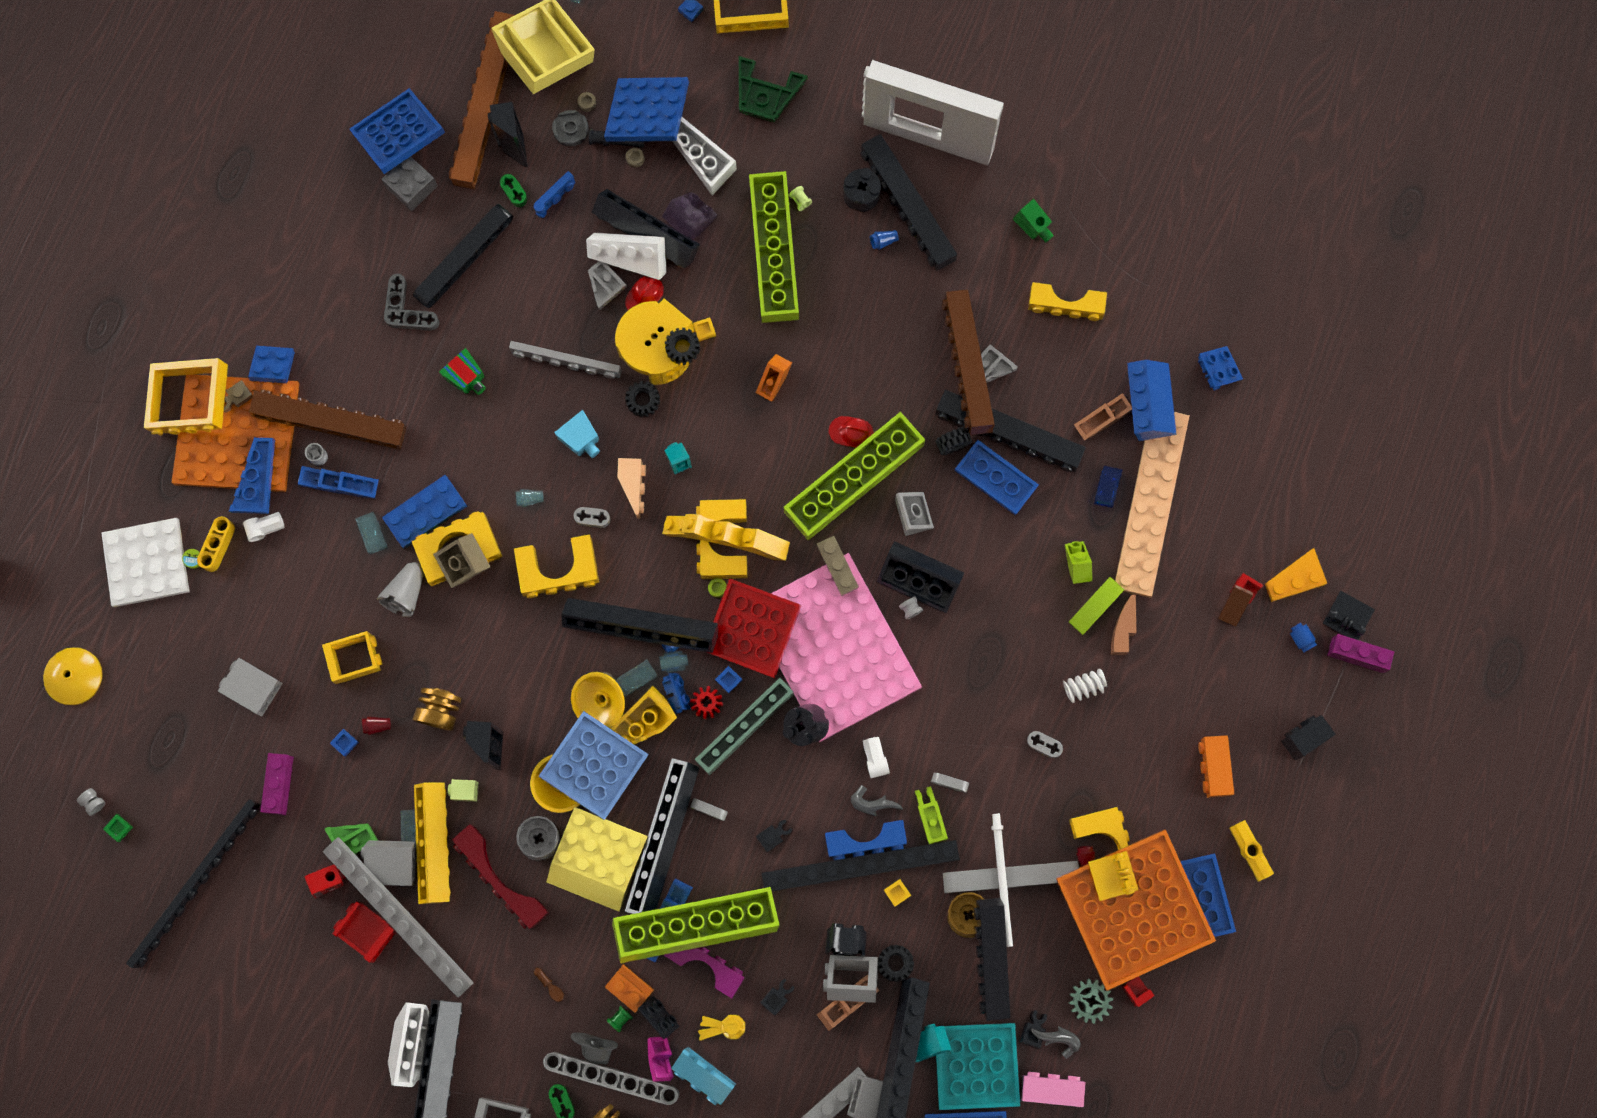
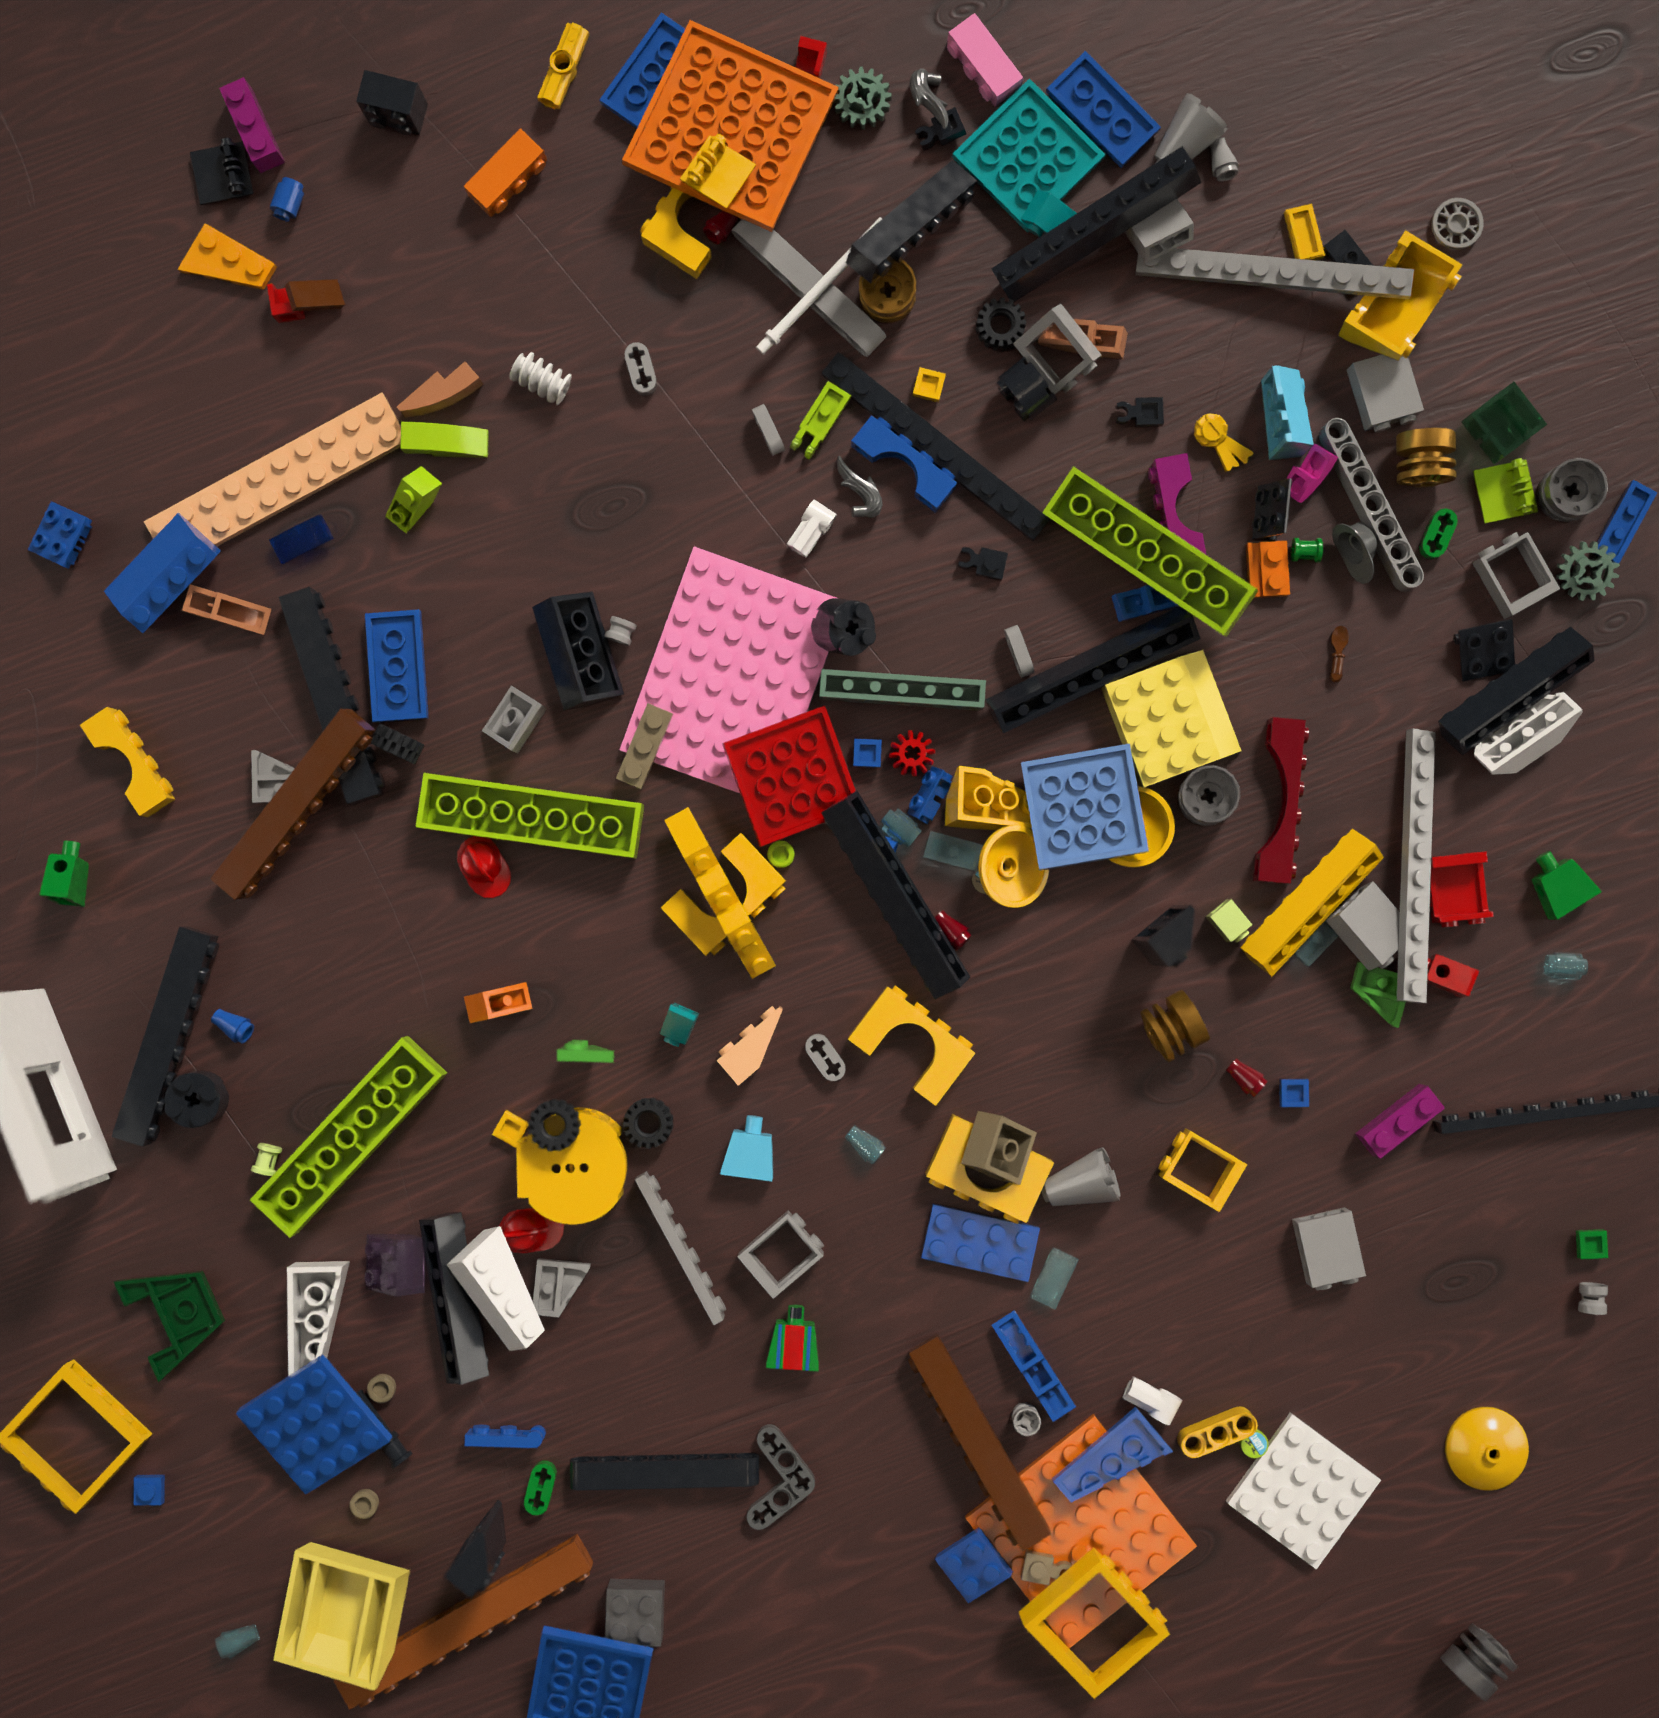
camera: 135 degrees left, 10 degrees up
(270, 951) = (1565, 965): none -> clear light blue brick
(312, 989) = (1562, 886): none -> green torso
(475, 1068) = (1486, 649): none -> black hinge
(511, 387) = (760, 1272): none -> light grey window
(570, 128) = (411, 1493): dark grey tile -> none
(595, 640) = (954, 931): none -> dark red cone
(706, 394) = (580, 1051): none -> bright green wing

